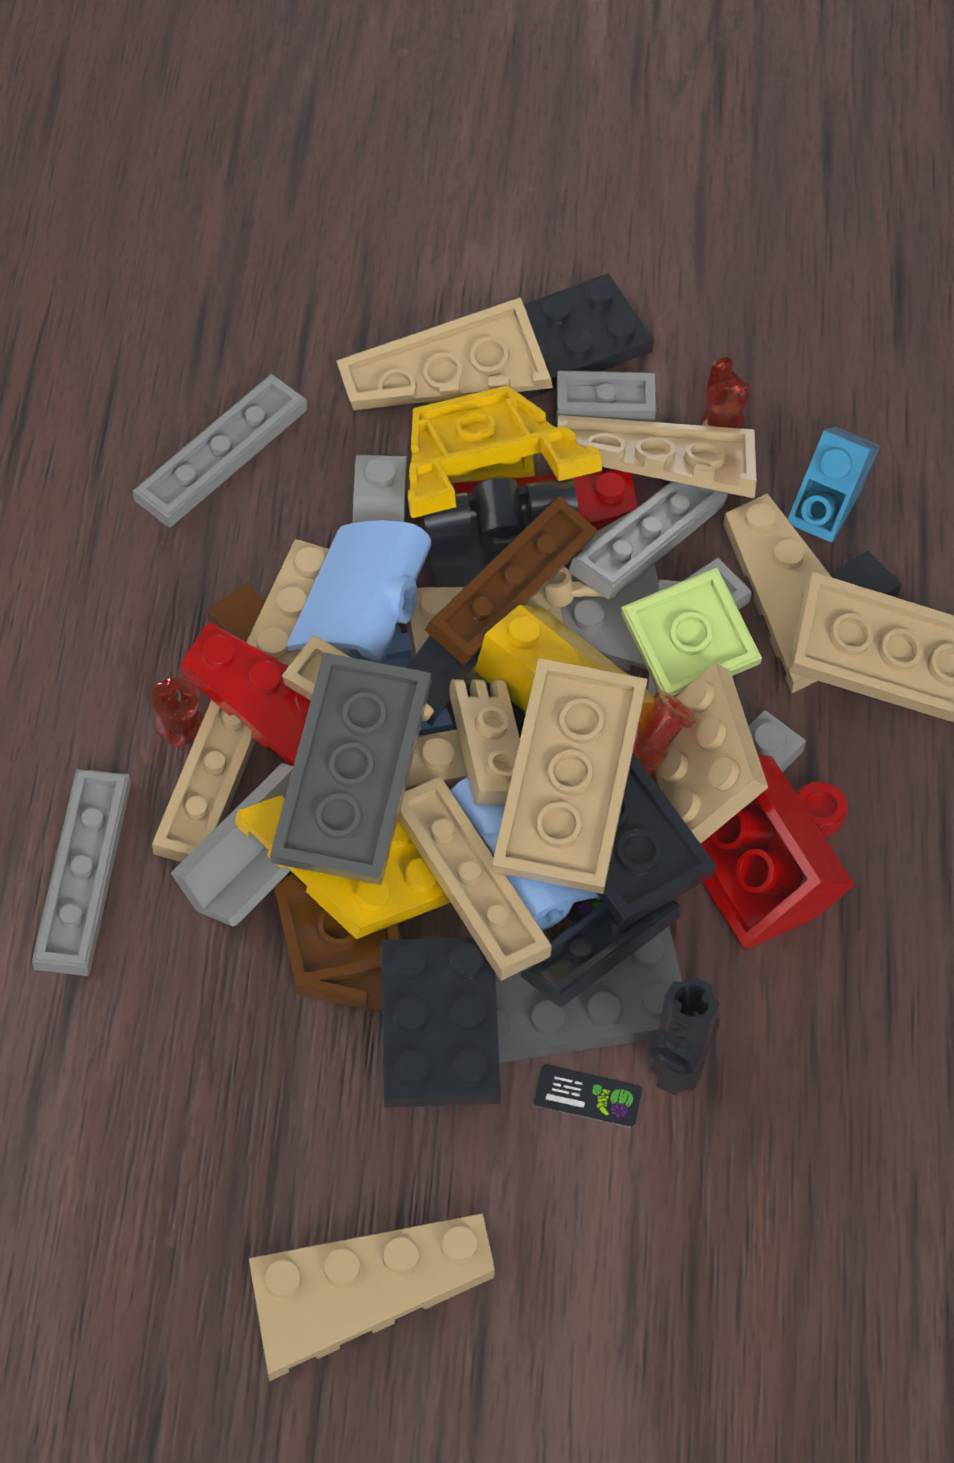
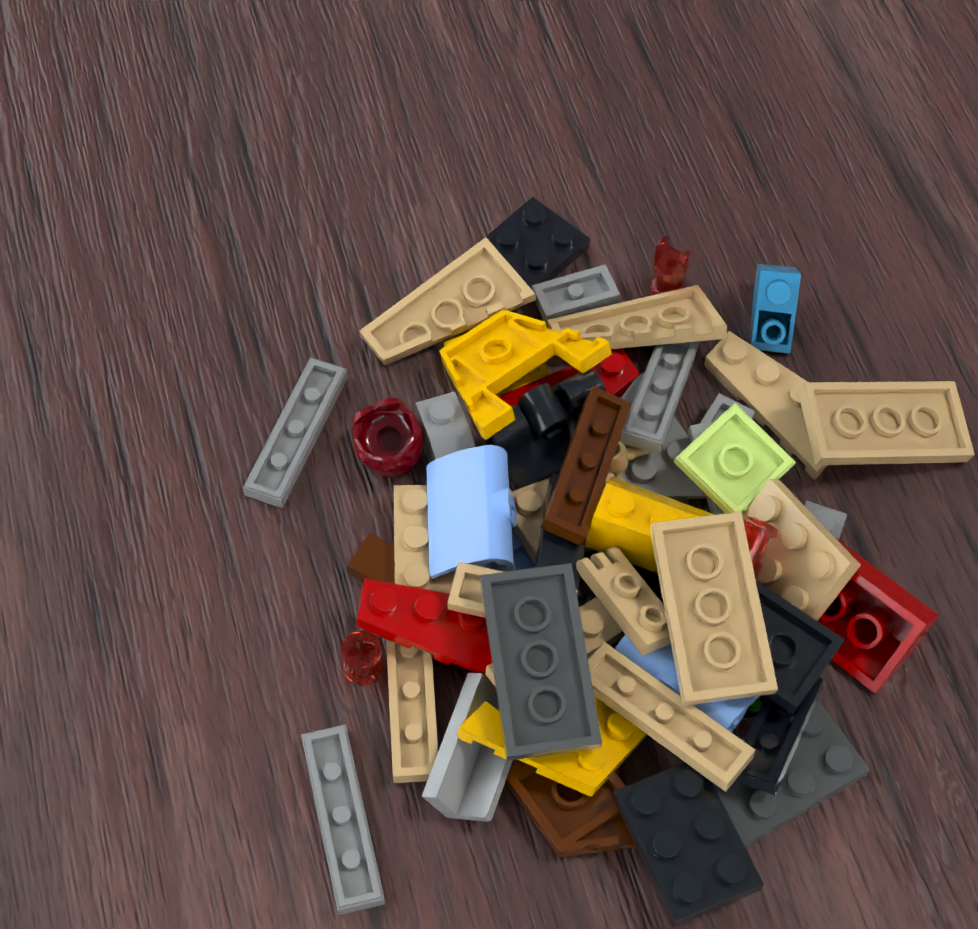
camera: 20 degrees left, 0 degrees up
(310, 487) = (387, 440): none -> dark red hair
(588, 1096) = (815, 855): black sticker -> none
(684, 1035) = (885, 784): black piece -> none
(825, 805) = (883, 557): red tile -> none
(868, 573) = (830, 369): black tile -> none

